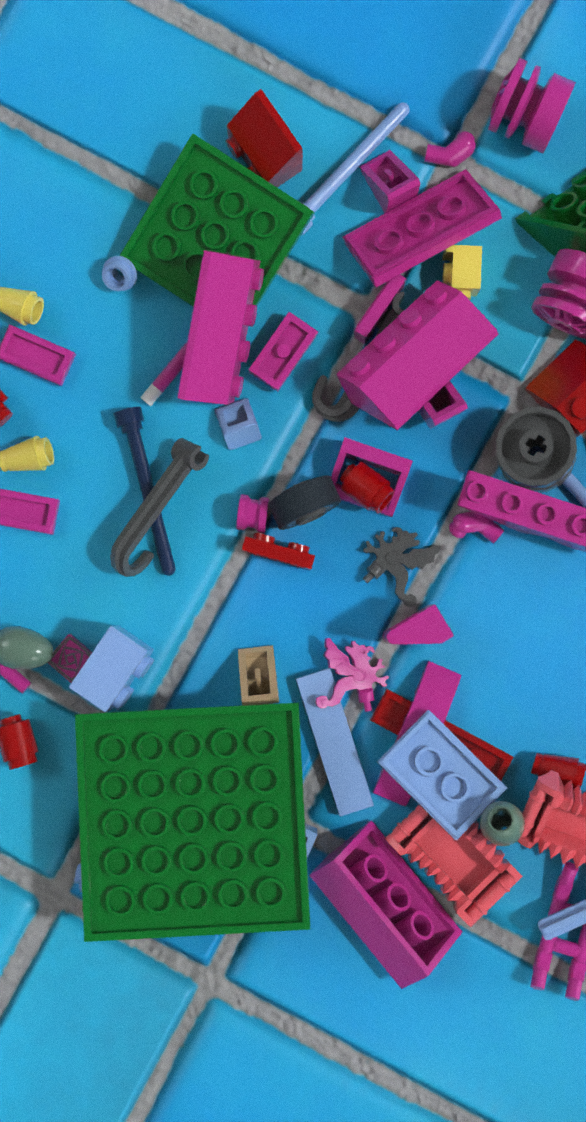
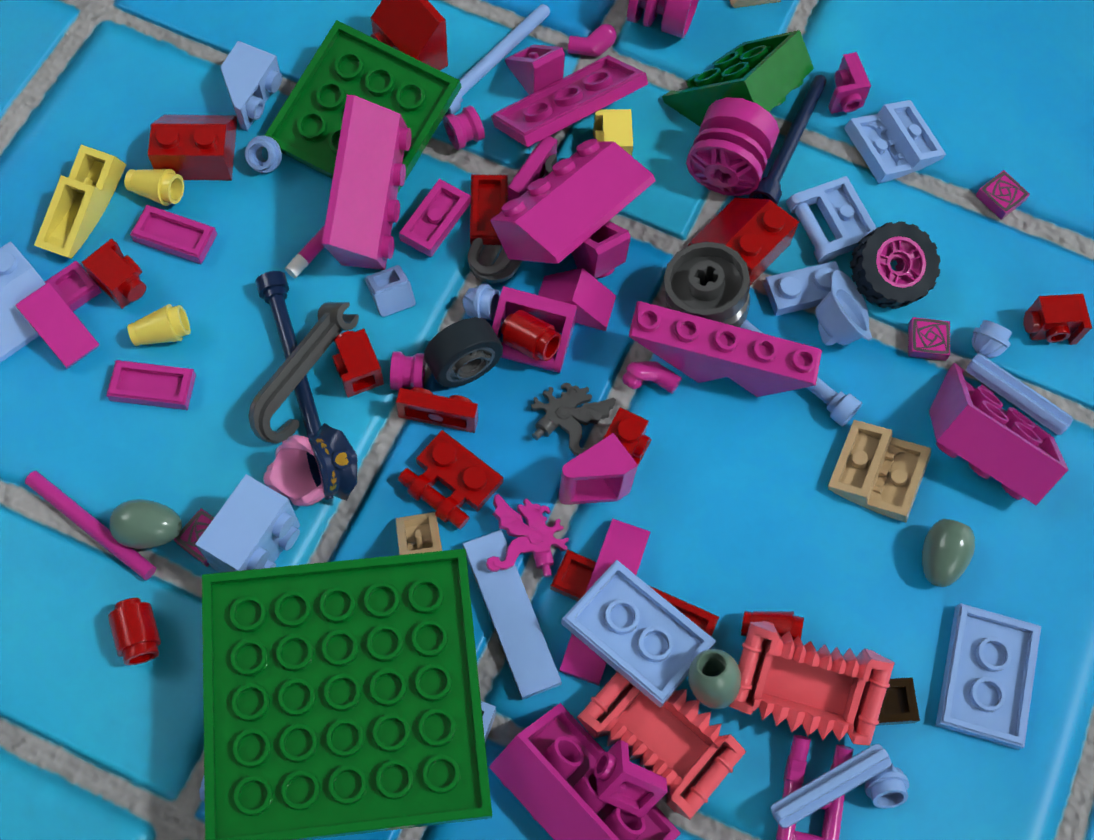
camera: 10 degrees left, 20 degrees down
(52, 258) = (194, 145): none -> red slope
(104, 187) = (250, 80): none -> light blue slope
(167, 609) = (313, 467): none -> piece
(205, 500) = (357, 363): none -> red brick
(295, 609) = (456, 469): none -> red plate
(315, 252) = (464, 127): none -> dark pink wheel
(323, 445) = (481, 302): none -> light blue plate
(334, 339) = (487, 198): none -> red tile
(414, 443) = (581, 289): none -> dark pink slope
(421, 901) = (626, 783): none -> dark pink bracket
(447, 592) = (631, 432): none -> red brick

